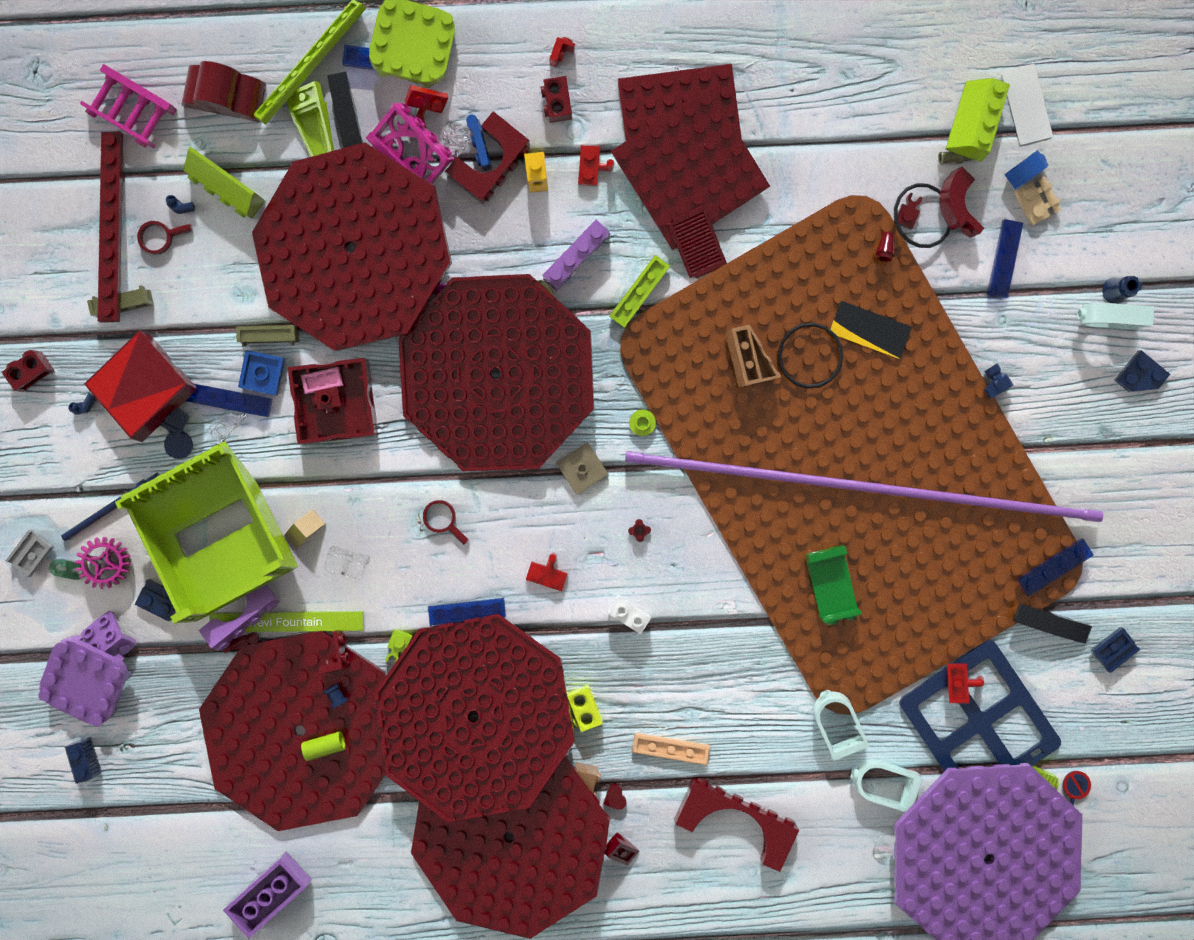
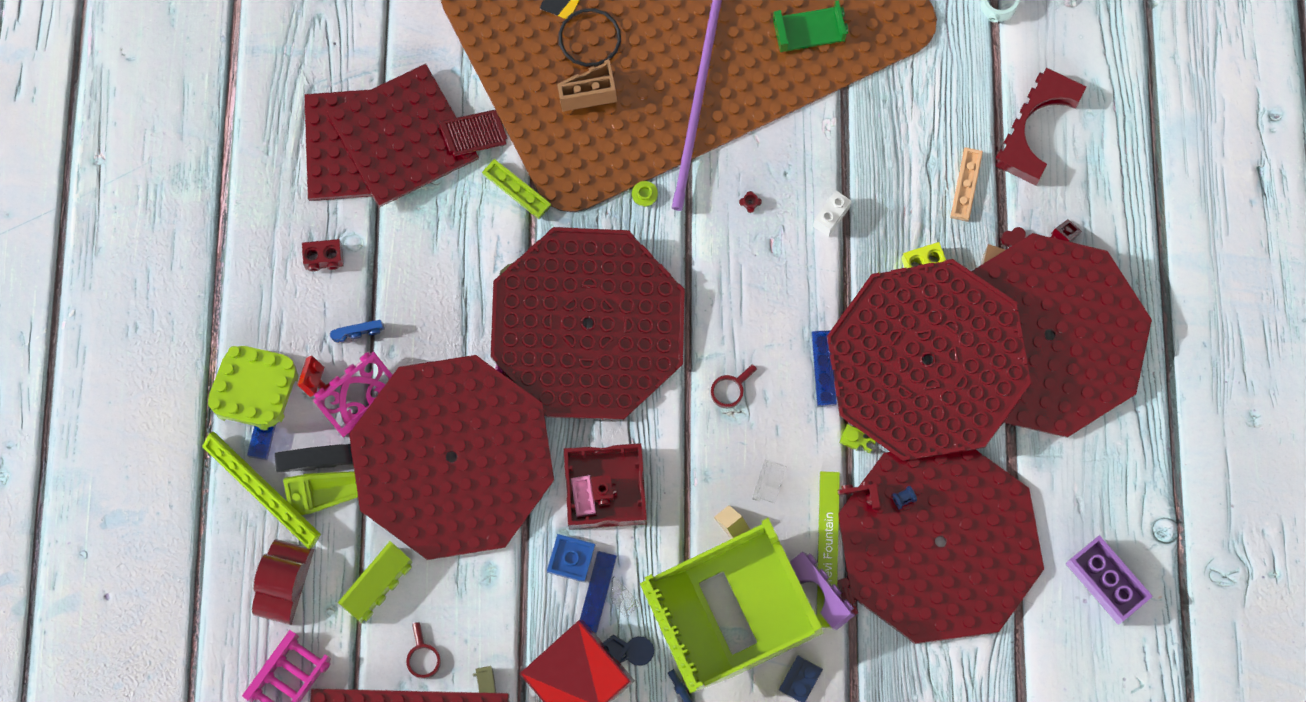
camera: 90 degrees left, 15 degrees down
(179, 207) = (395, 633): dark blue arm -> none
(267, 334) = (532, 548): olive container -> none
(323, 746) = (955, 512): lime pin -> none
(455, 138) = (351, 350): clear brick -> none
(481, 184) = (364, 299): dark red arch -> none
(536, 172) = (391, 276): yellow torso -> none
(547, 574) = (789, 291): red plate -> none
(558, 52) = (277, 252): red bracket -> none
(574, 256) = (476, 242): medium lavender arch -> none
(582, 468) = (686, 252): dark tan plate -> none
(590, 165) = (389, 229): red plate -> none
(847, 746) = (965, 18): light aqua window -> none

